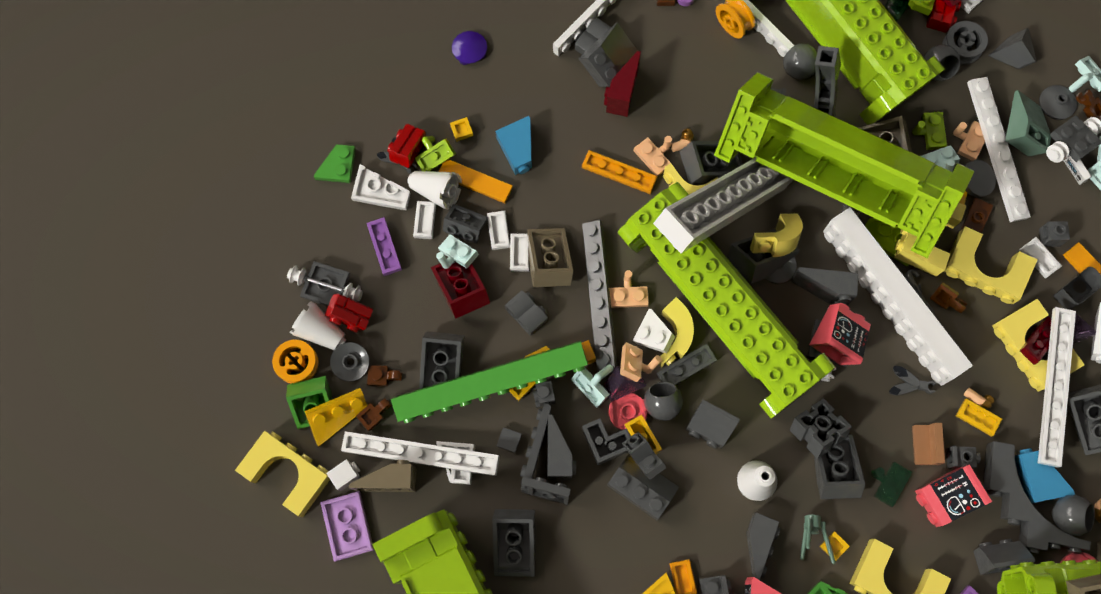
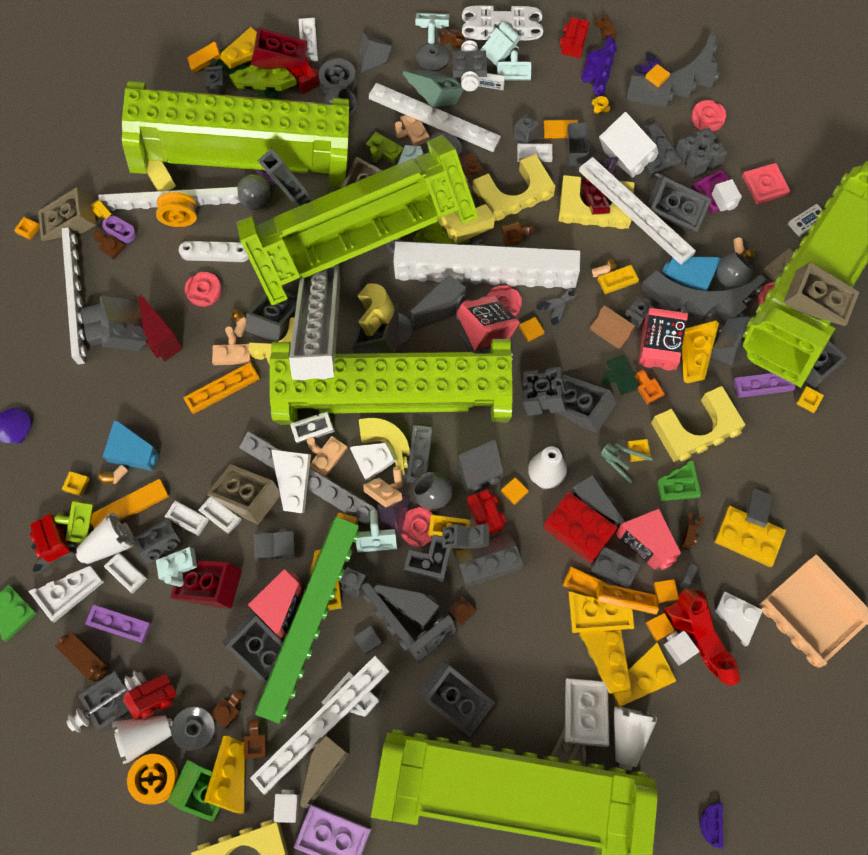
camera: 55 degrees left, 5 degrees down
(342, 241) = (82, 656): none -> reddish brown brick
(484, 350) = (279, 602): none -> coral slope
(487, 151) = (112, 477): none -> arm
(586, 496) = (462, 611): none -> reddish brown plate
(588, 284) = (292, 478): none -> white wing
(641, 266) = (312, 427): none -> white brick
(679, 456) = (485, 511): none -> red brick
(688, 91) = (203, 289): none -> coral tile
(717, 467) = (514, 491): none -> light orange tile
(723, 69) = (213, 251): none -> white plate
(727, 543) = (580, 527): none -> red brick
(870, 377) = (531, 329): none -> light orange tile
(880, 336) = (508, 297): none -> coral tile
(897, 517) = (649, 389): none -> orange plate
(967, 534) = (697, 350): none -> yellow wing

